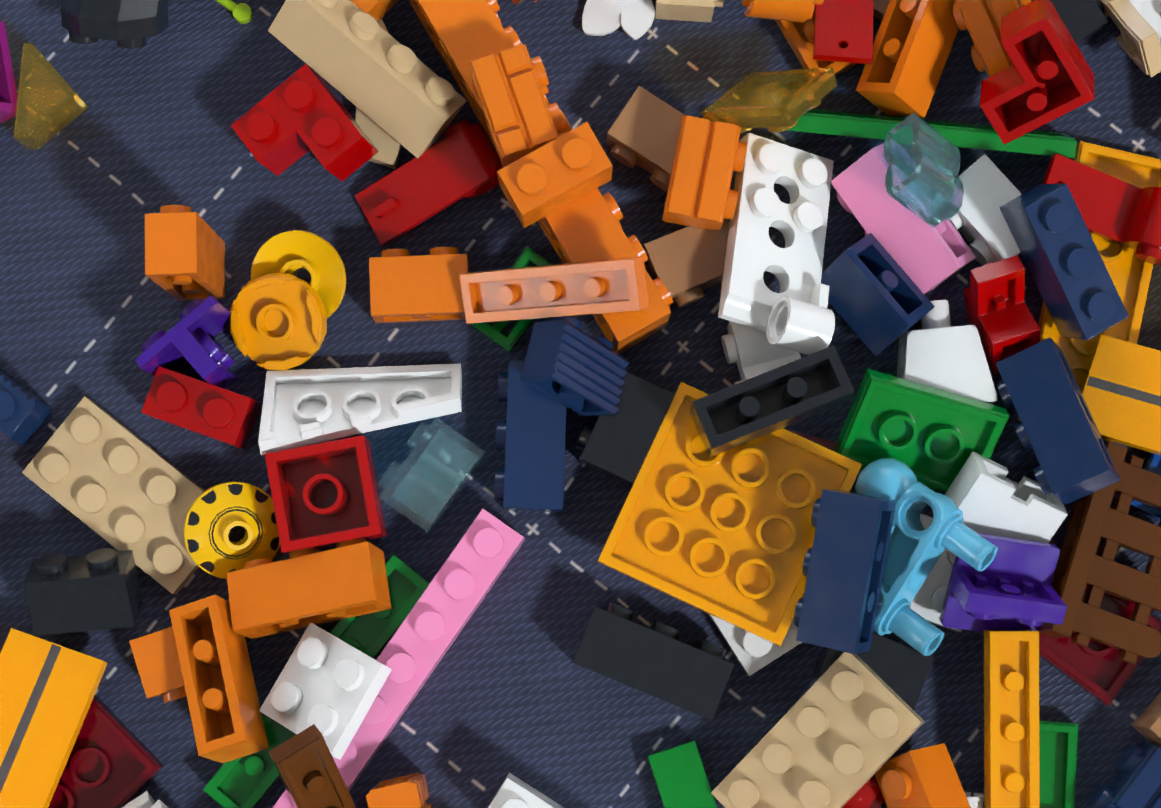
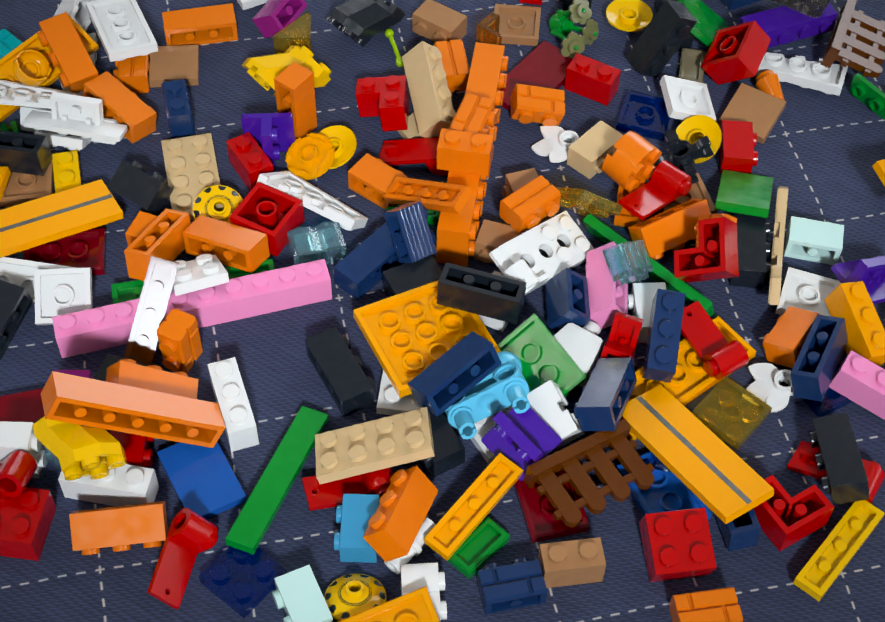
camera: 40 degrees right, 30 degrees down
(103, 193) = (266, 68): none -> yellow brick

